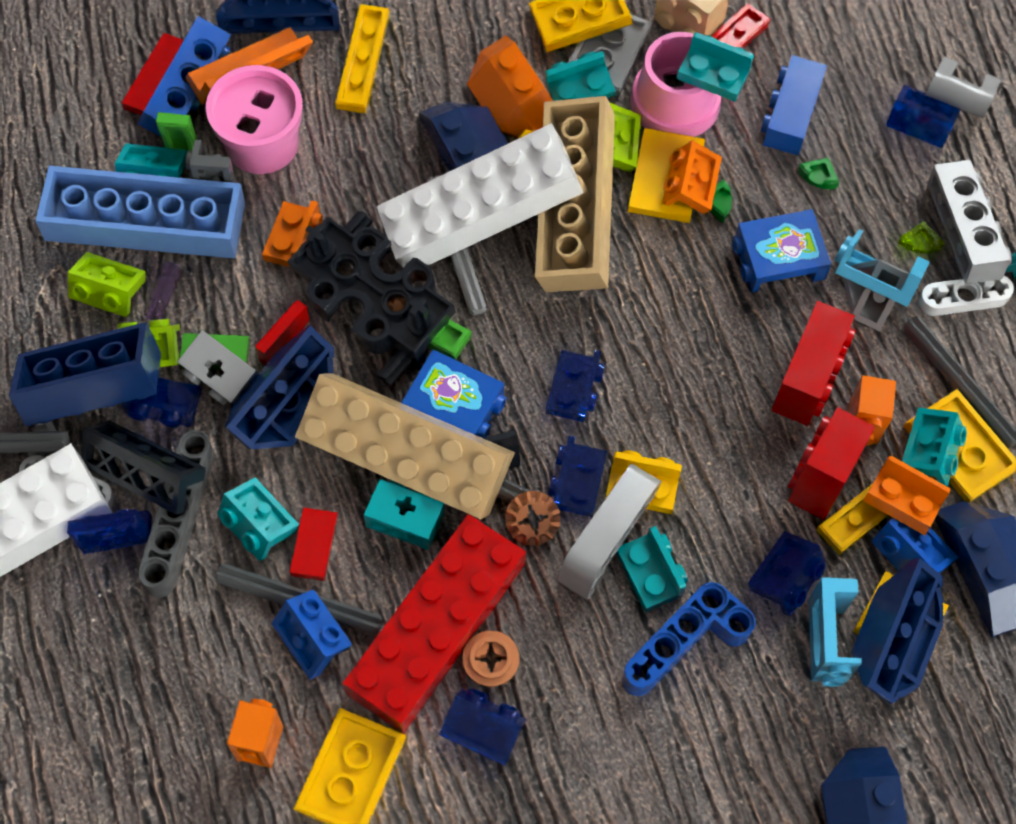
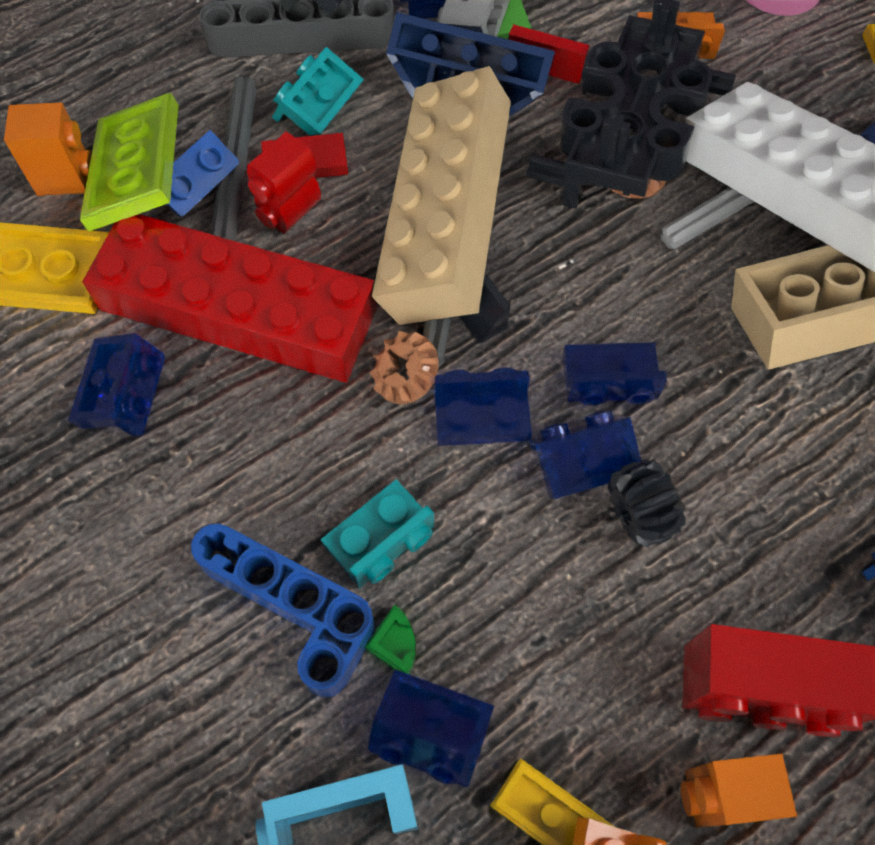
camera: 75 degrees right, 0 degrees up
(290, 669) = (131, 162): none -> lime tile
(354, 558) = (283, 182): none -> red brick
(414, 527) = (360, 226): teal brick -> none
(451, 340) = (616, 220): bright green tile -> none
(456, 394) = (534, 238): blue panel -> none
(502, 647) = (188, 366): nougat gear -> none
(607, 531) = (410, 451): light grey beam -> none
(631, 420) = (585, 454): none -> clear blue bracket
(661, 468) = (503, 492): yellow bracket -> none
(682, 395) = (646, 502): none -> black gear
(730, 578) = (394, 642): none -> green tile
(828, 462) = (616, 737): red brick -> none

